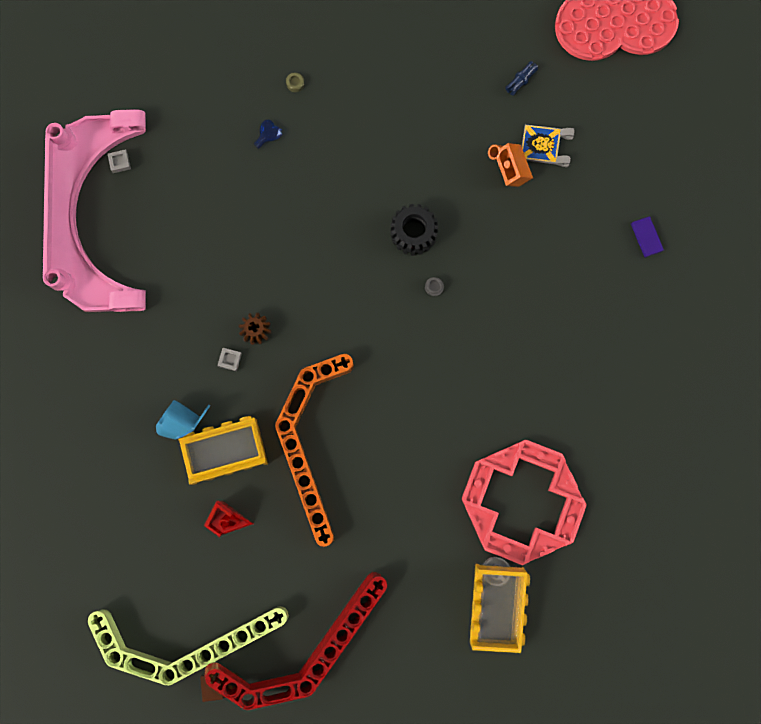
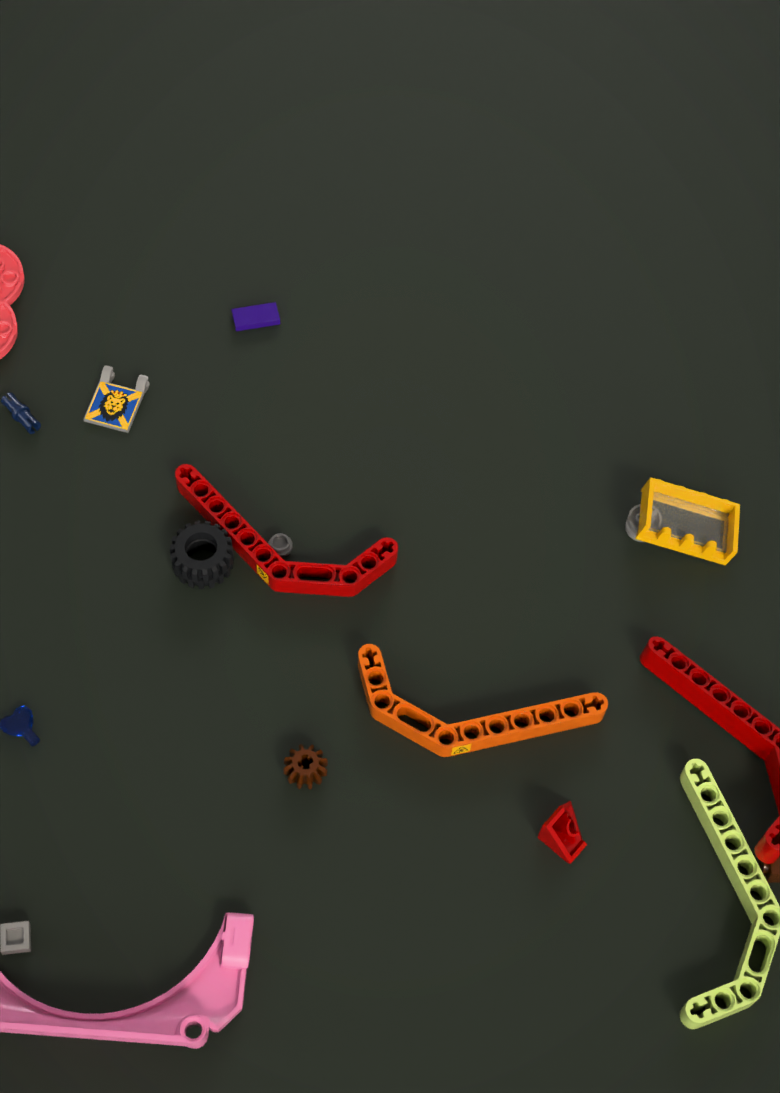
camera: 90 degrees left, 20 degrees down
(178, 421) = (428, 877): dark azure piece -> none
(223, 450) = (471, 825): window -> none
(229, 359) = (342, 808): light grey tile -> none
(427, 271) = (380, 555): none -> red beam
(511, 163) = (136, 434): orange hinge -> none
(561, 484) = (580, 527): coral plate -> none

